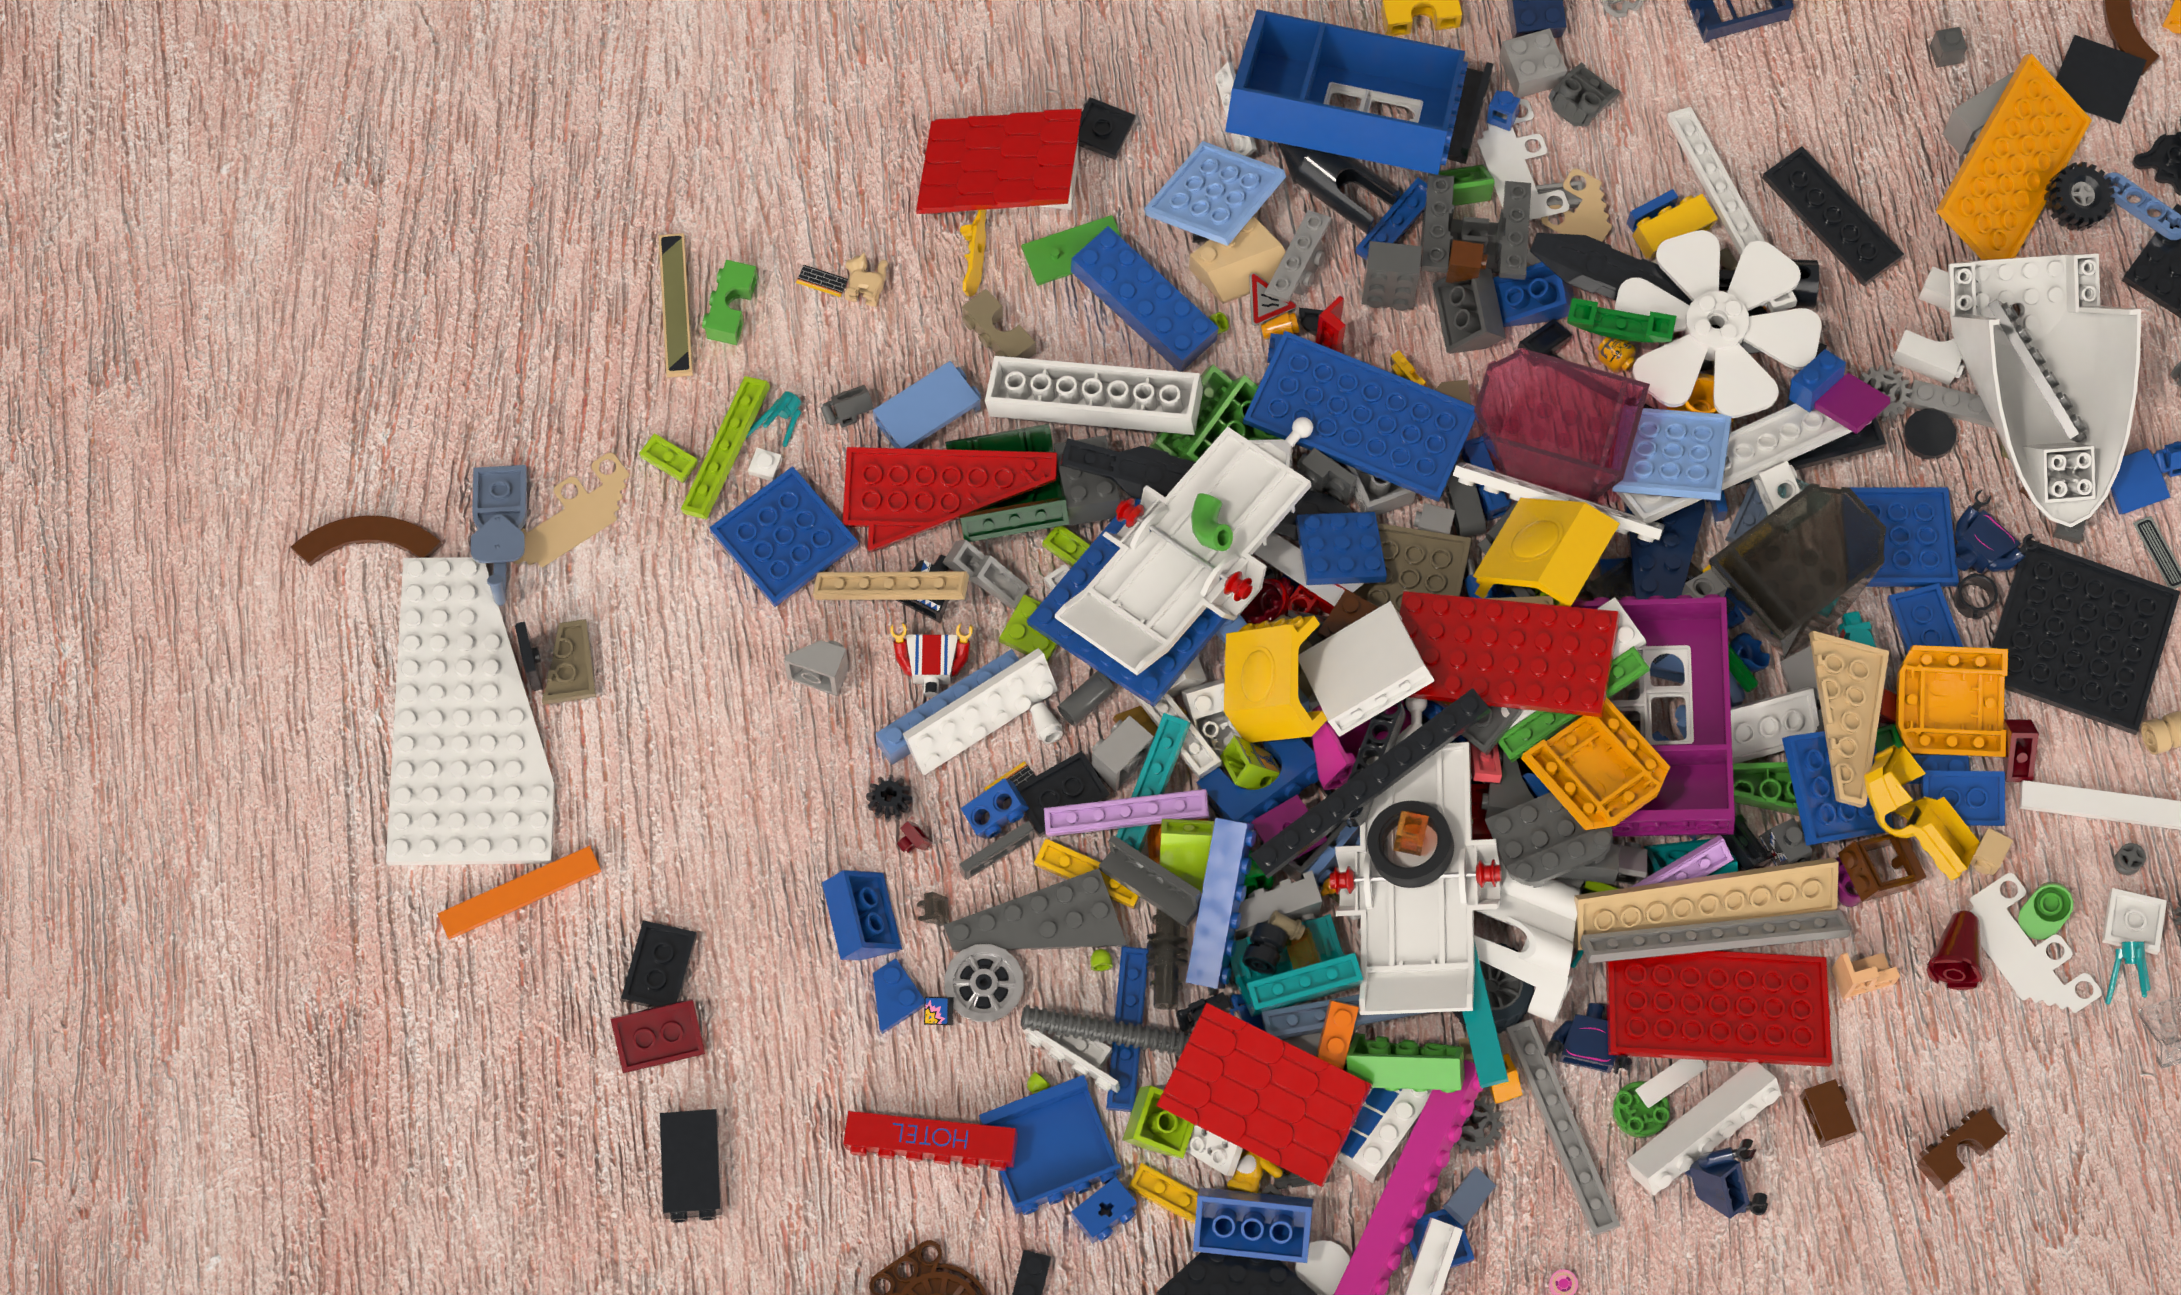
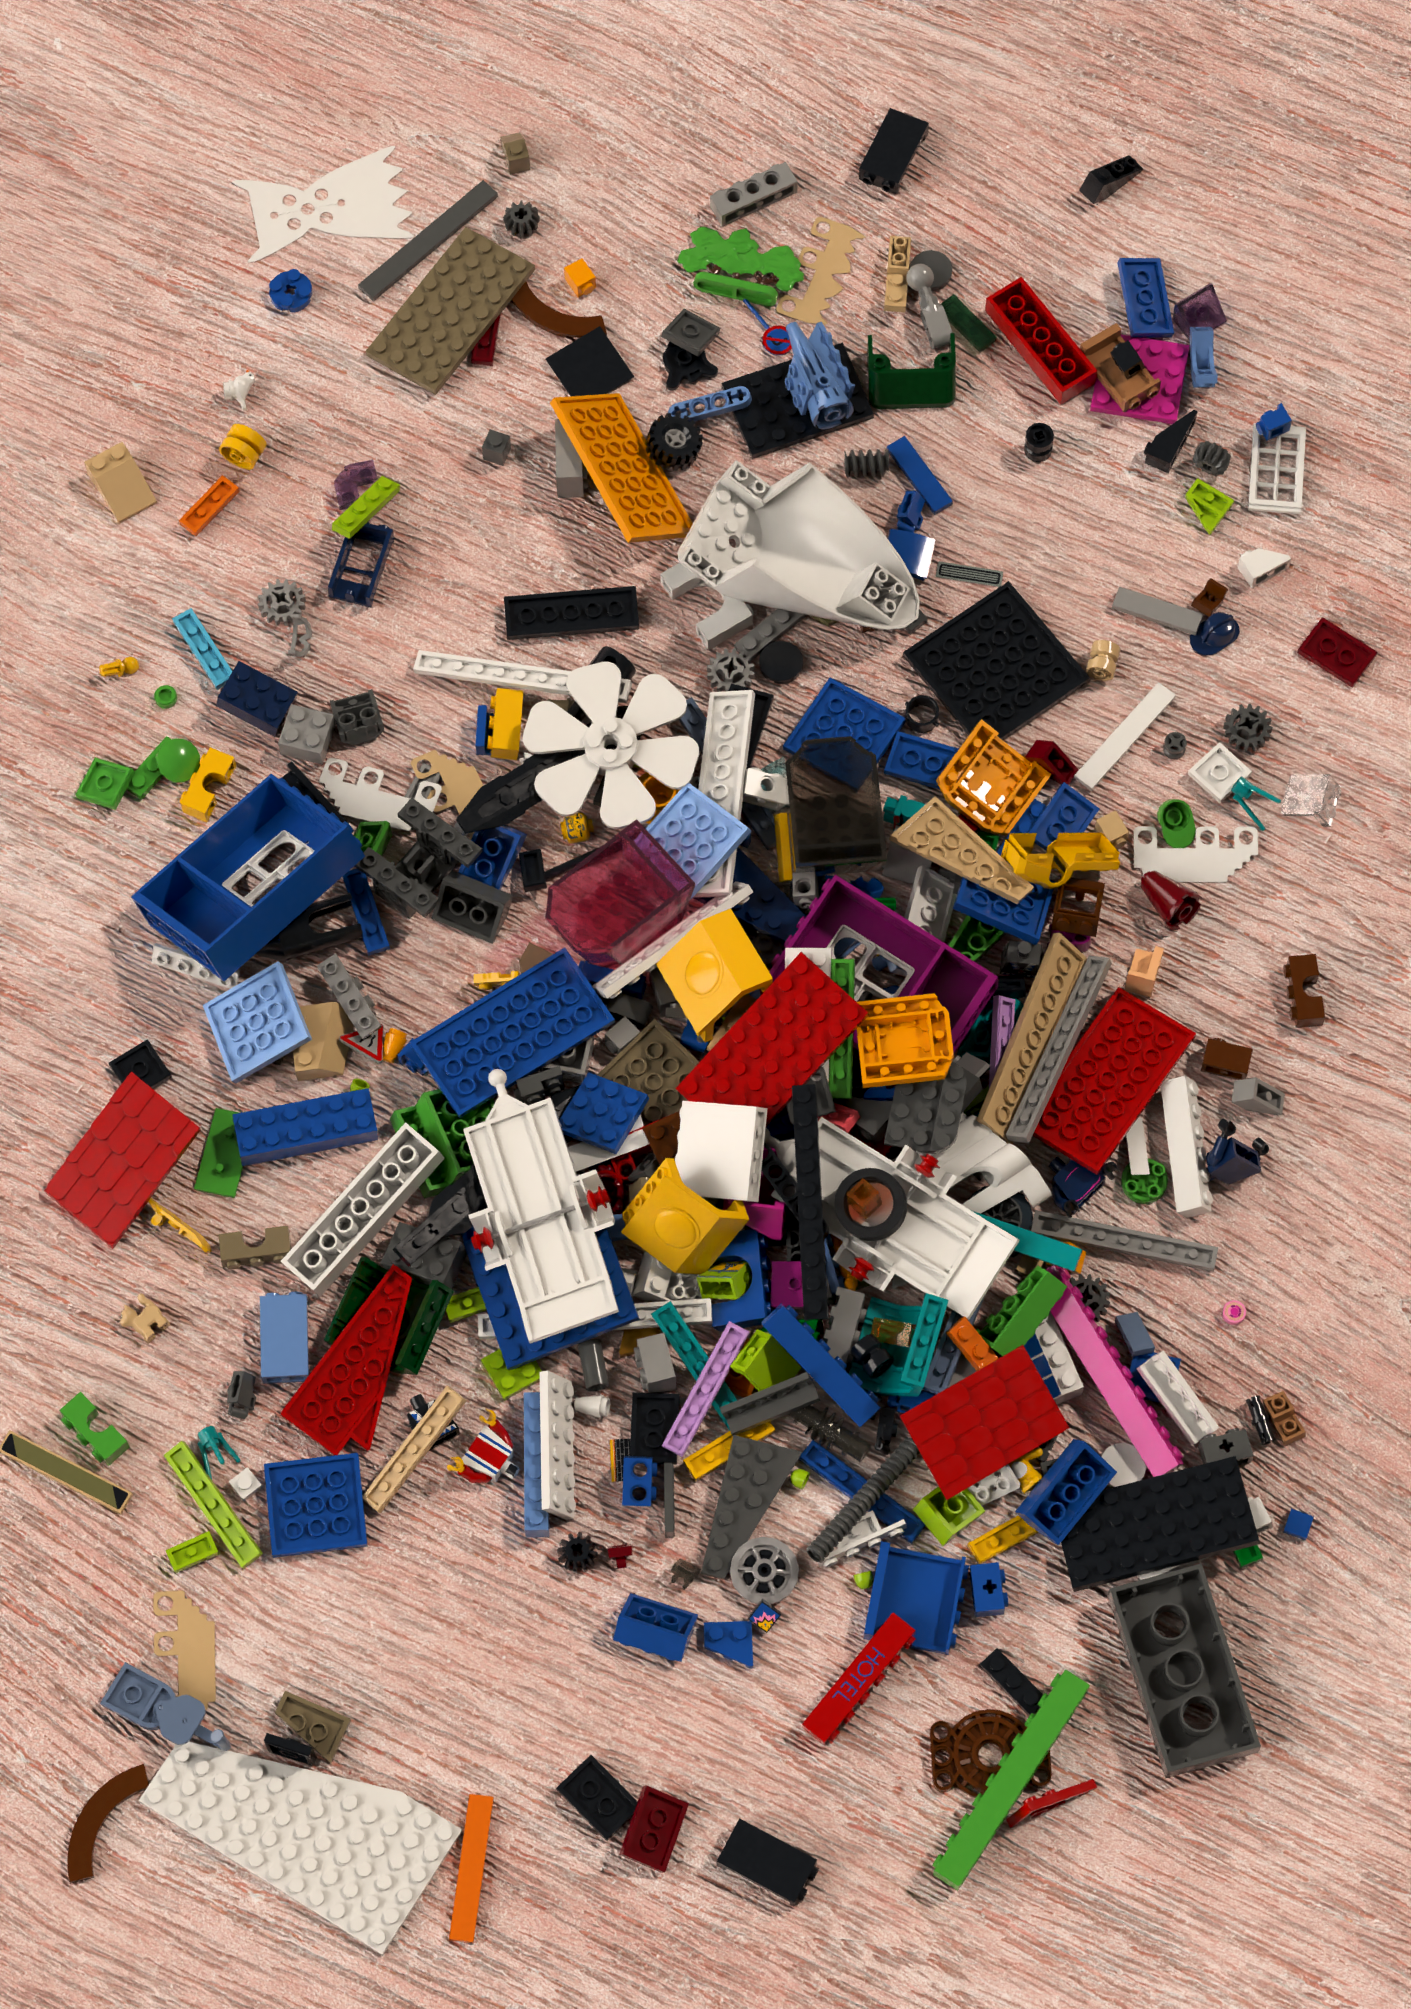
camera: 55 degrees left, 0 degrees up
(819, 666) = (444, 1539): light grey slope -> none
(822, 280) = (120, 1352): black sticker -> none
(986, 573) = (452, 1372): light grey slope -> none
(1206, 525) = (537, 1191): bright green cylinder -> none
(1293, 928) = (870, 1326): dark tan pin -> none
(1309, 319) = (402, 1020): black tile -> none
(1330, 327) = (430, 1010): red panel -> none
(1391, 275) = (414, 941): dark grey brick -> none
(1465, 261) = (443, 881): reddish brown slope -> none
(1504, 103) = (329, 774): blue brick -> none
(1621, 324) = (569, 807): green slope -> none
(1811, 1169) = (1257, 1096): none -> light grey slope
(1816, 379) = (701, 707): blue brick -> none
(1852, 403) = (734, 696): magenta tile -> none
(1986, 543) = (889, 680): dark blue torso -> none
(2043, 378) = (804, 559): plate -> none

